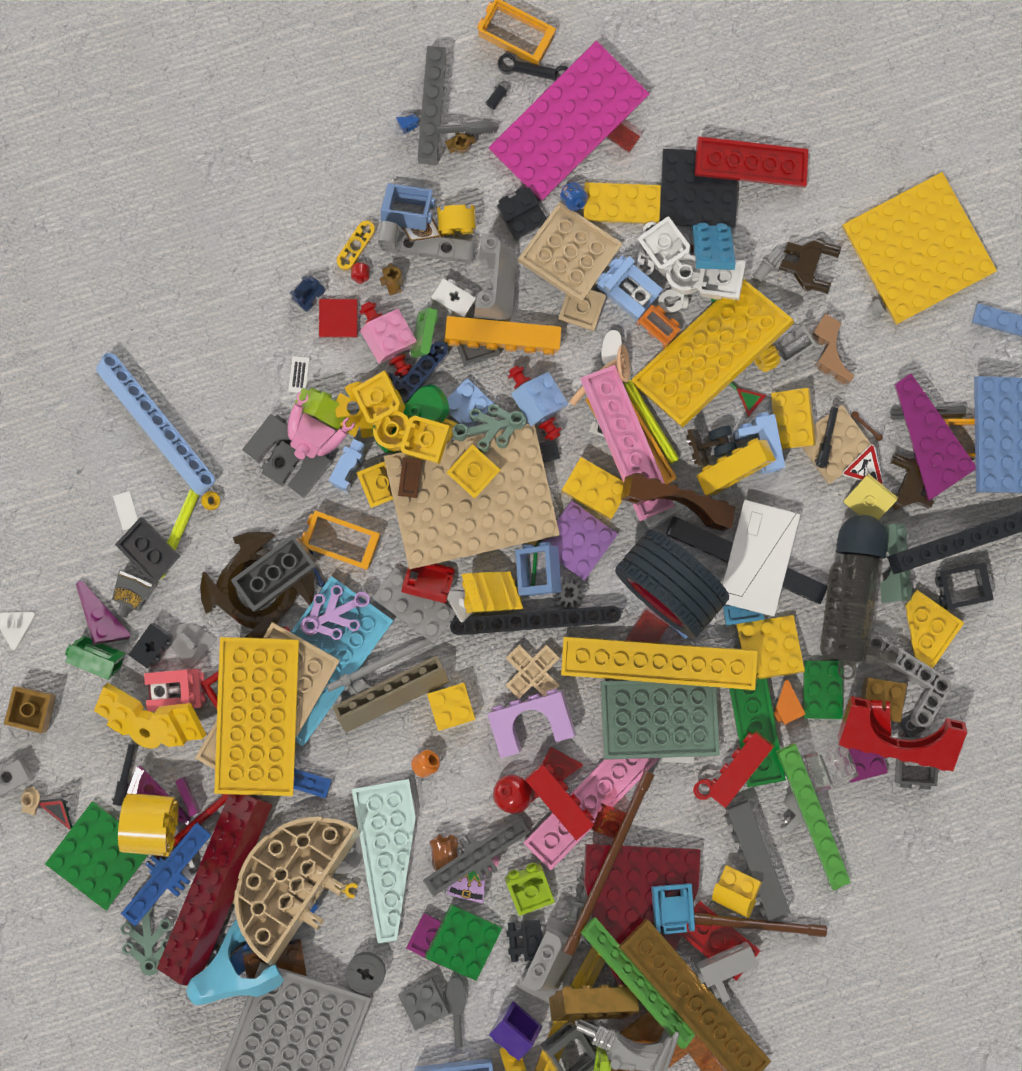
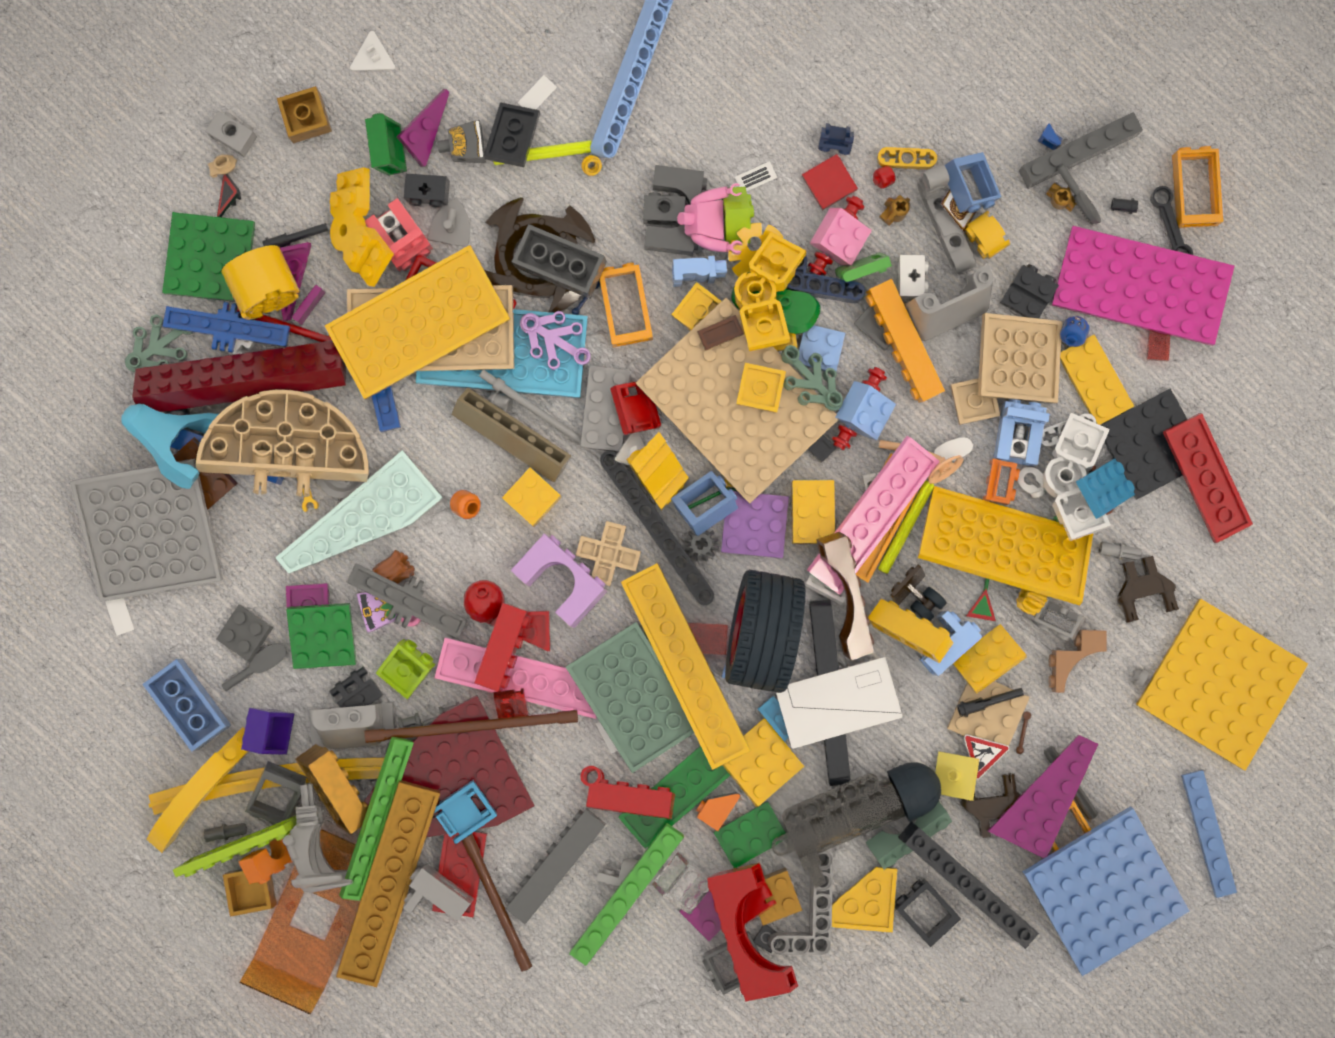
camera: 60 degrees right, 0 degrees up
(355, 976) = (236, 552): dark grey piece -> none
(736, 891) = (515, 862): yellow brick -> none

